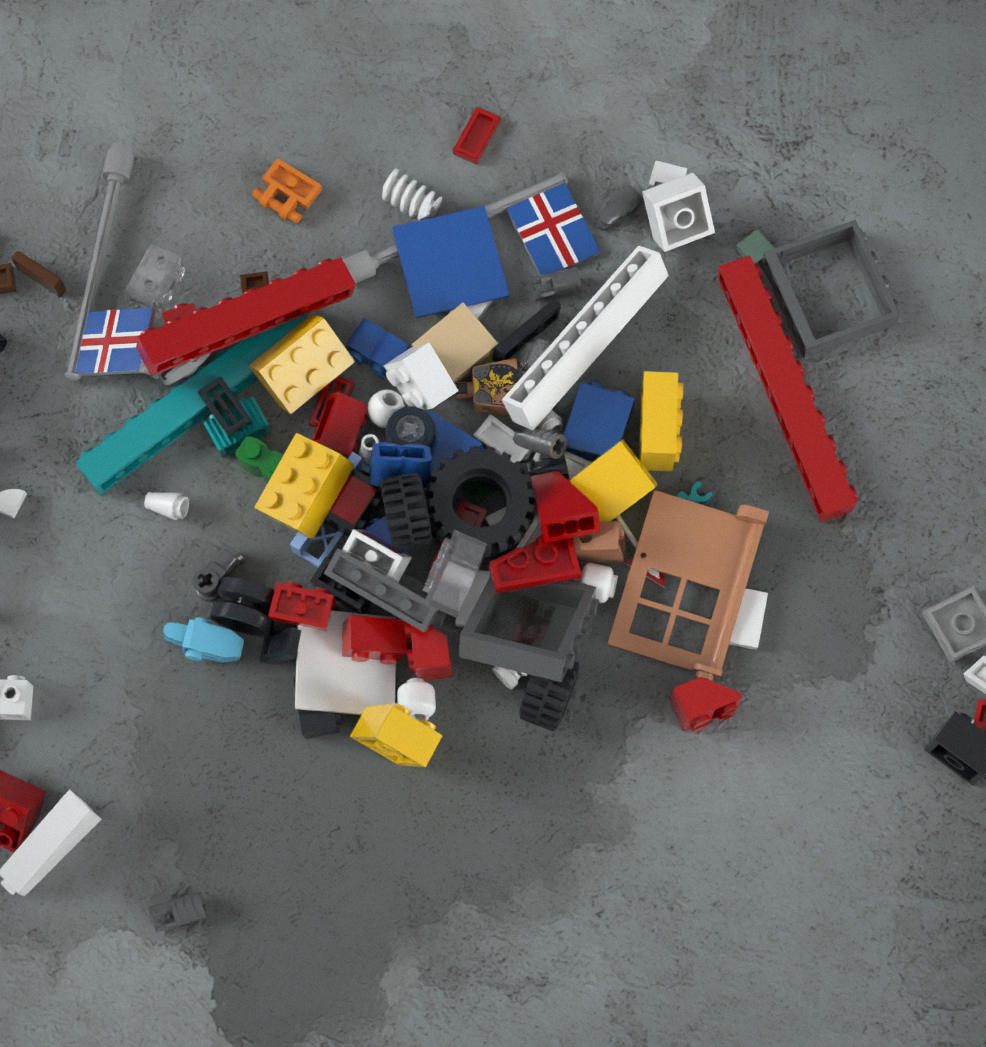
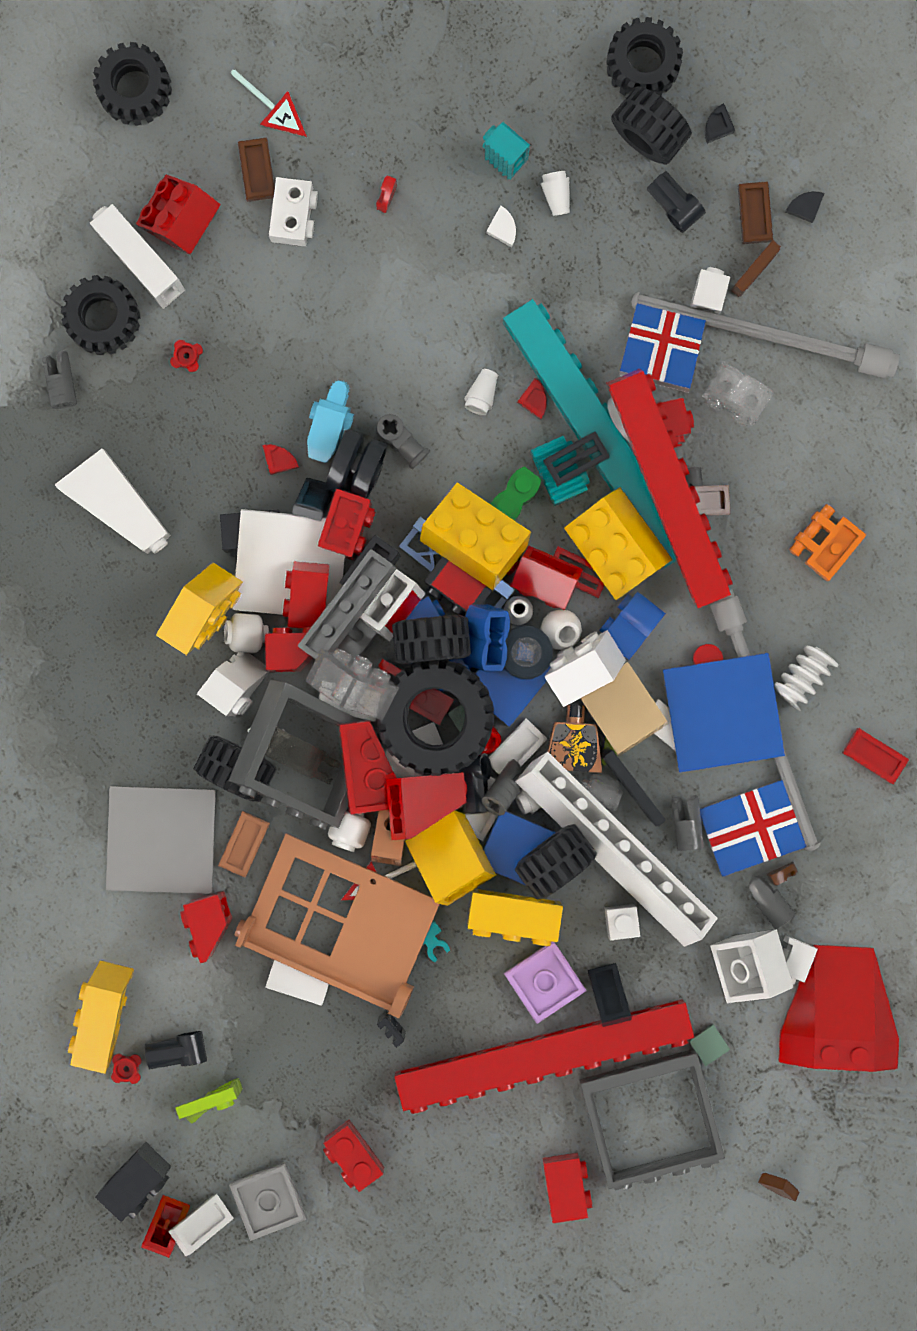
camera: 90 degrees right, 15 degrees up
(60, 310) = (710, 290): none -> white brick
(88, 863) = (89, 293): none -> black tyre
(142, 781) = (182, 348): none -> red plate
(171, 458) = (534, 399): none -> red tile
(243, 689) = (279, 459): none -> red tile
(297, 841) = (110, 497): none -> white slope
(398, 284) = (706, 653): none -> red tile
(469, 701) = (233, 684): none -> white wedge
(592, 201) = (781, 874): none -> reddish brown tile
(603, 379) = (556, 861): none -> black tyre
(622, 683) = (244, 844): none -> nougat tile
(627, 765) = (160, 840): none -> light grey piece
(652, 330) = (622, 922): none -> white brick
(714, 141) = (840, 1015): none -> red wedge
(717, 394) = (545, 982): none -> lavender plate
(721, 334) = (609, 995): none -> black tile
(779, 520) = (392, 1028): none -> black tile
(809, 800) = (99, 1017): none -> yellow wedge
(829, 717) = (185, 1049): none -> black piece
(862, 768) = (132, 1062): none -> red plate
(867, 673) = (220, 1097): none -> lime plate
(873, 177) = (779, 1186): none -> reddish brown tile
(904, 355) = (566, 1188): none -> red piece
(908, 544) = (353, 1155): none -> red brick

